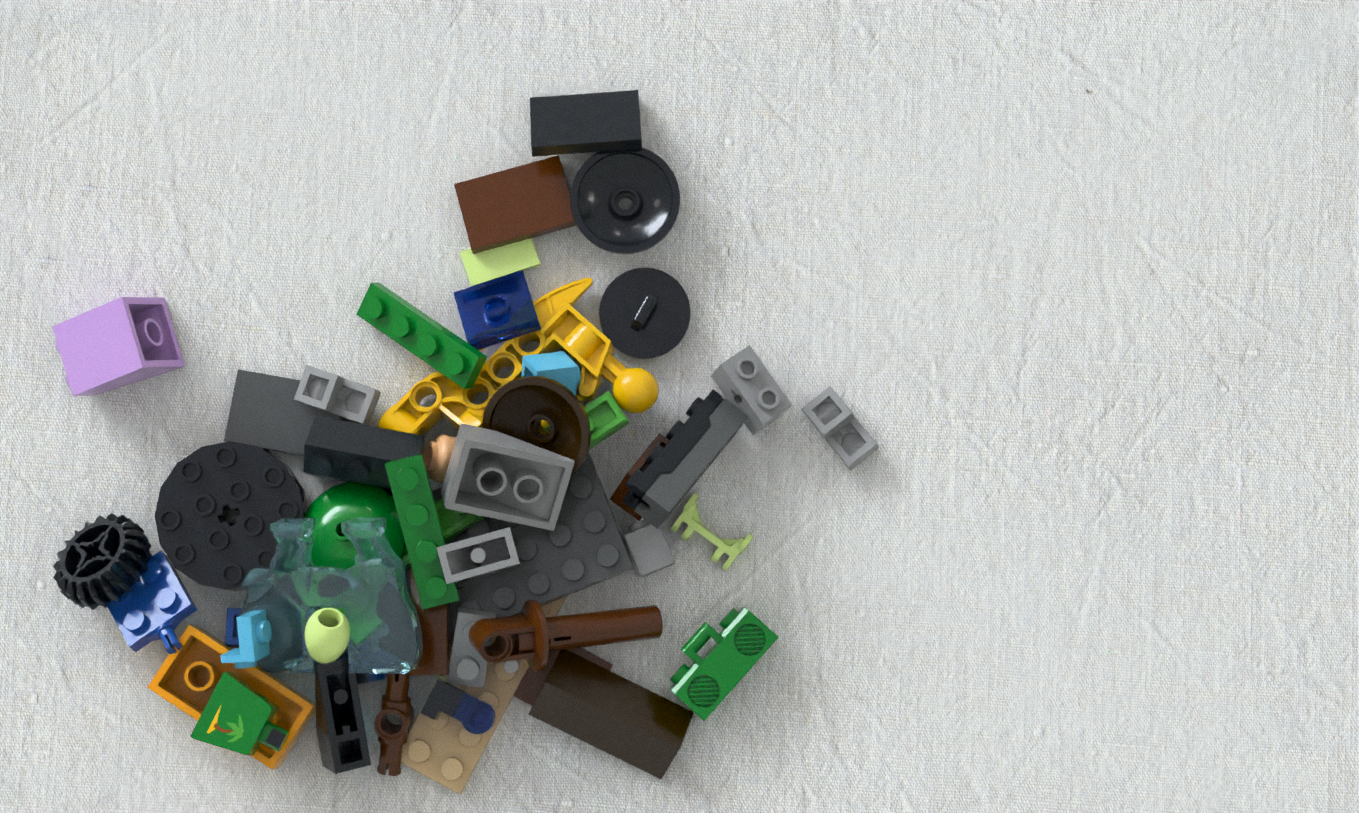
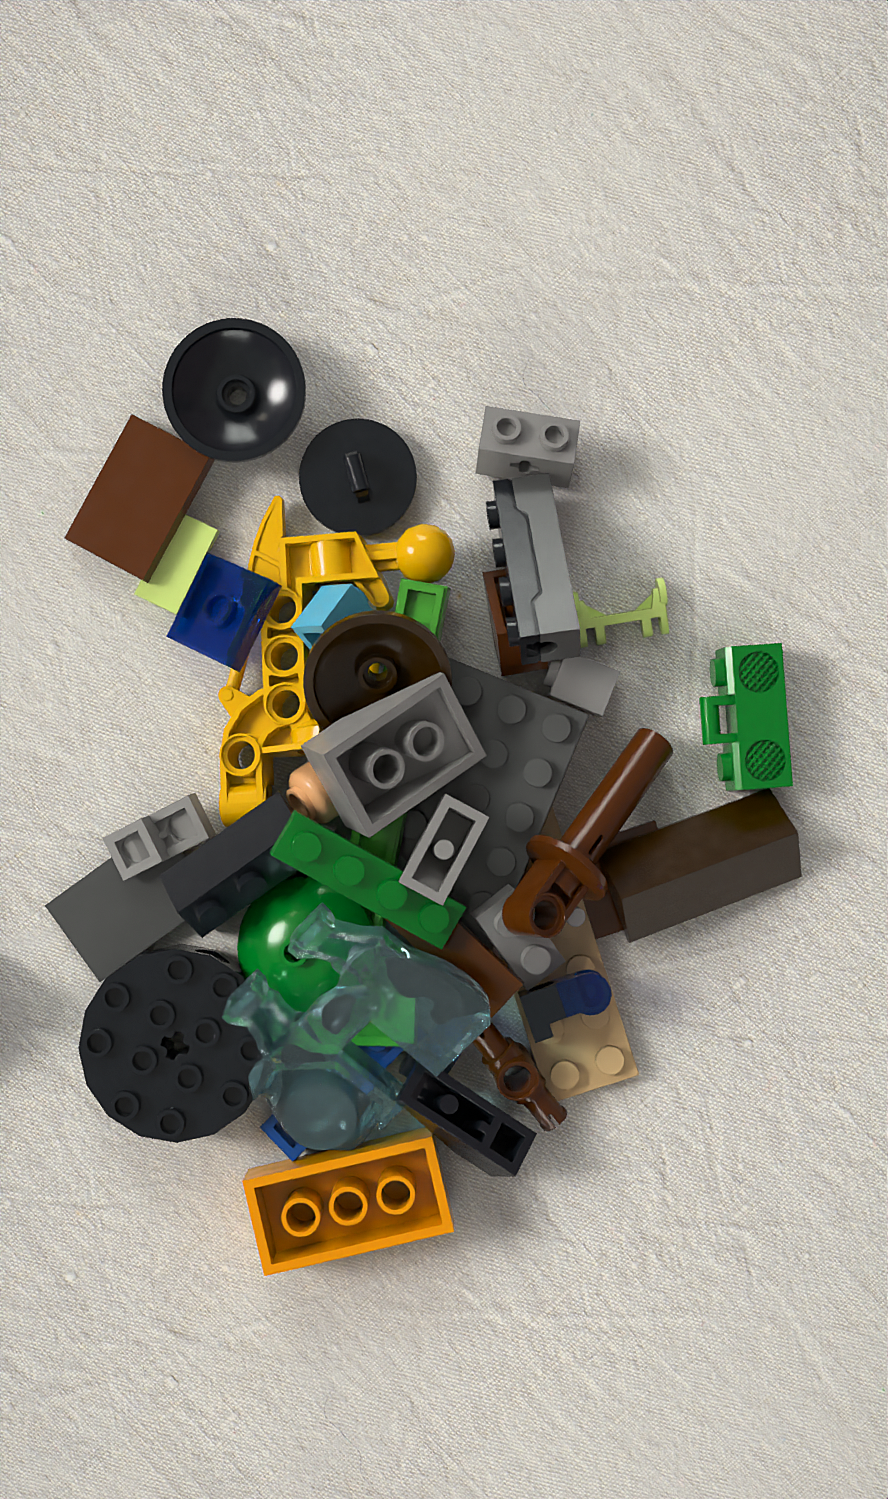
camera: 45 degrees left, 5 degrees up
(102, 561) = (104, 1204): black gear -> none
(153, 606) = (184, 1197): blue plate -> none
(239, 718) = (378, 1220): green torso -> none
(254, 640) = (317, 1137): medium azure bracket -> none
(327, 635) = (381, 1065): yellowish green animal -> none
(421, 335) = (179, 703): green plate -> none
(585, 123) = (126, 358): black tile -> none
(840, 428) = (639, 401): light grey slope -> none

